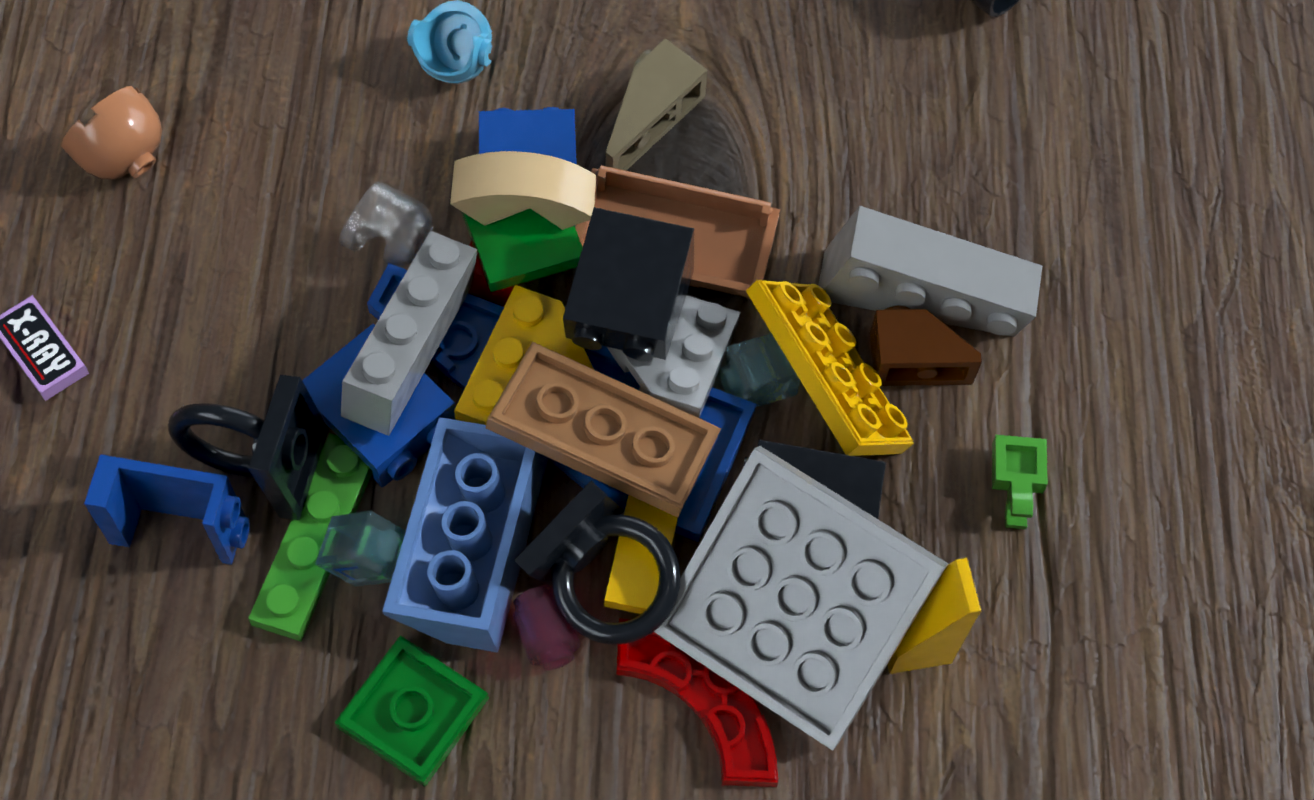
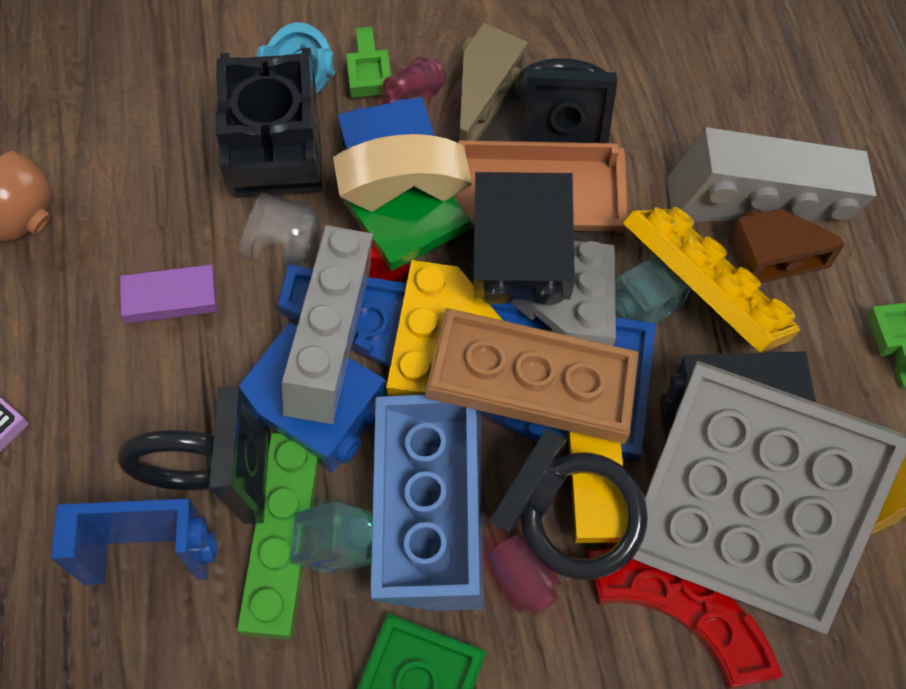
camera: 10 degrees left, 0 degrees up
(259, 268) = (168, 294): none -> medium lavender tile
(402, 110) = (268, 124): none -> black piece
(529, 64) = (367, 67): none -> bright green plate
(575, 88) = (419, 78): none -> clear pink cone
(732, 150) = (566, 101): none -> black tile

